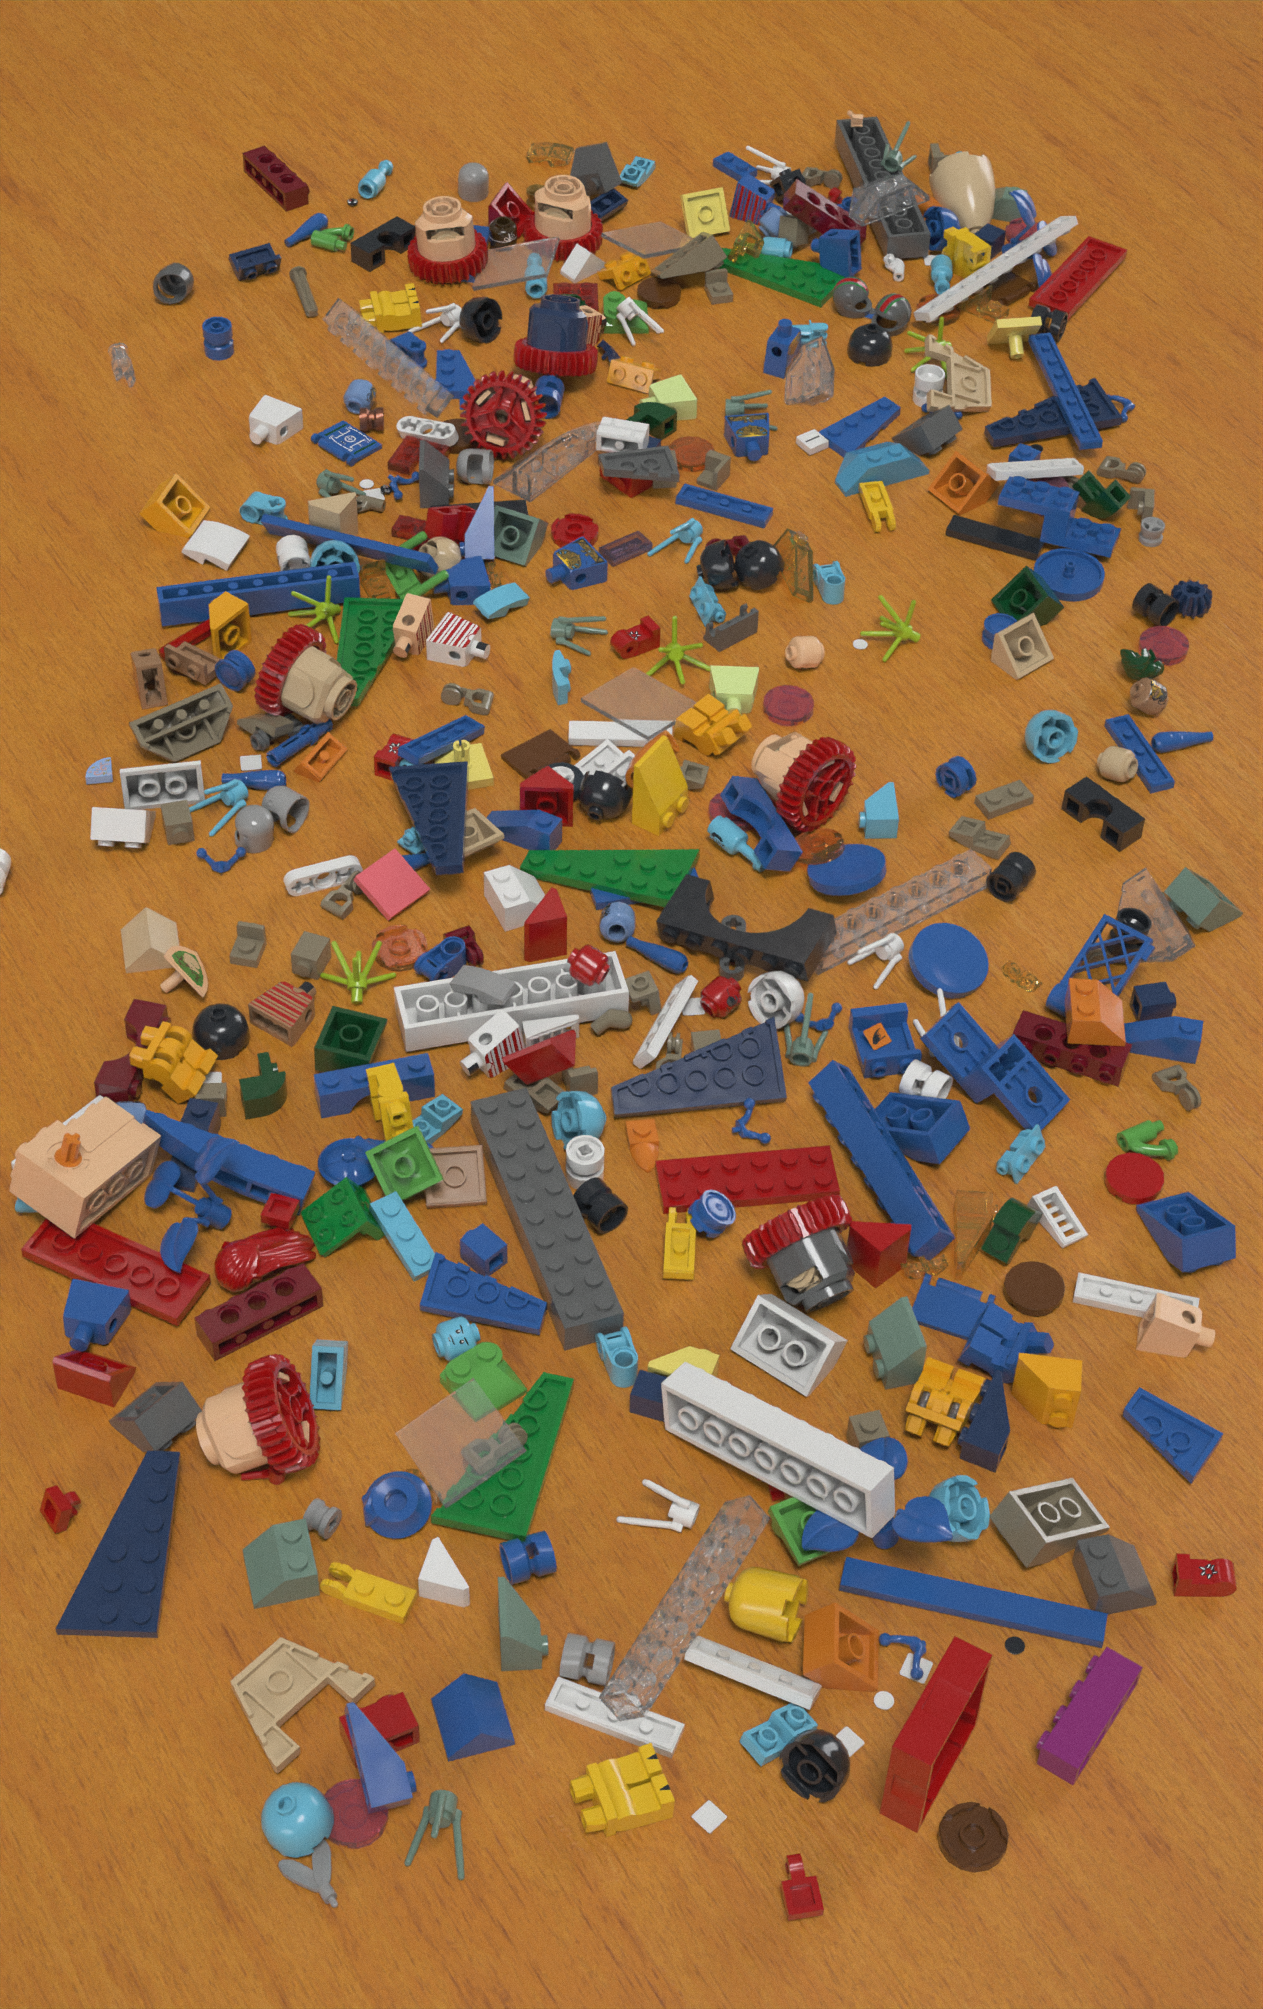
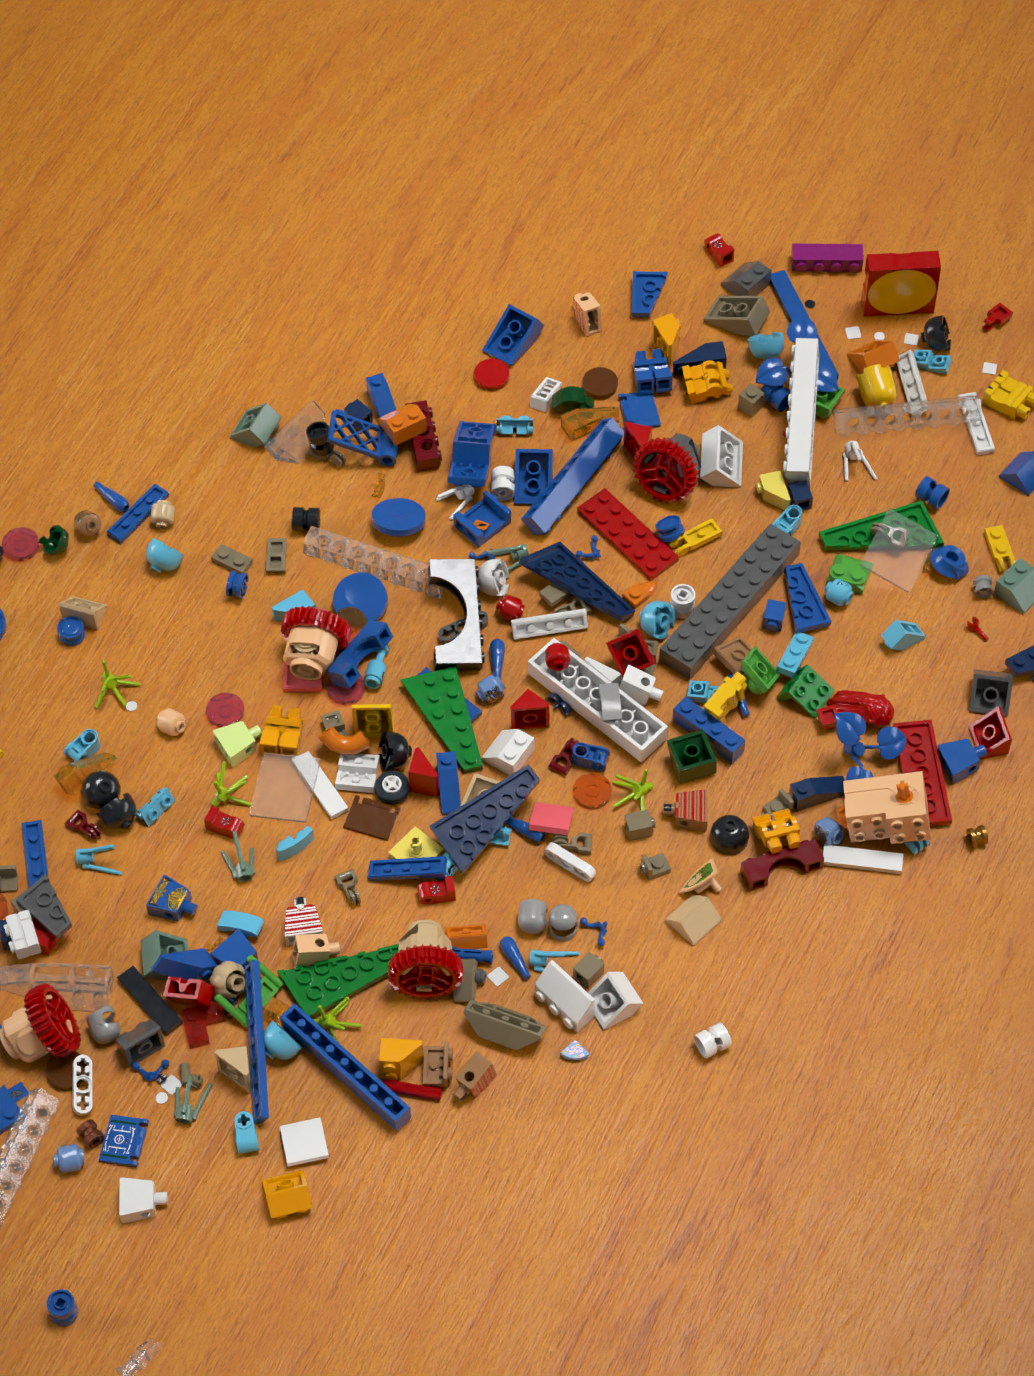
camera: 120 degrees left, 10 degrees up
(235, 670) = (427, 1030): blue wheel -> none
(244, 1171) = (821, 748): blue slope -> none
(258, 1311) = (904, 687): dark red brick -> none
(261, 1420) = (966, 629): red piece -> none
(263, 1093) = (755, 780): dark green brick -> none
(292, 553) = (286, 1077): white wheel -> none
(346, 1159) = (769, 708): blue piece -> none
(407, 454) = (110, 1083): clear red plate -> none
(441, 1578) = (971, 522): white slope -> none
(519, 1632) = (976, 472): sand green slope -> none
(573, 527) = (128, 930): red tile -> none
(576, 1655) = (962, 441): light grey wheel -> none
(600, 1205) = (704, 579): black wheel -> none
(625, 548) = (126, 888): tile -> none
(644, 989) = (537, 641): dark tan bracket -> none
(733, 630) = (174, 776): dark grey hinge -> none
(886, 949) = (409, 551): white plant -> none
(896, 1345) = (690, 410): sand green slope -> none
(914, 1643) = (843, 336): blue piece -> none
(1027, 595) = (30, 629): dark green slope -> none
(1089, 800) = (216, 489): black arch -> none
(1119, 1295) = (573, 341): white tile -> none
(1136, 1137) = (464, 384): bright green plant -> none
(1187, 1092) = (416, 373): dark tan piece -> none

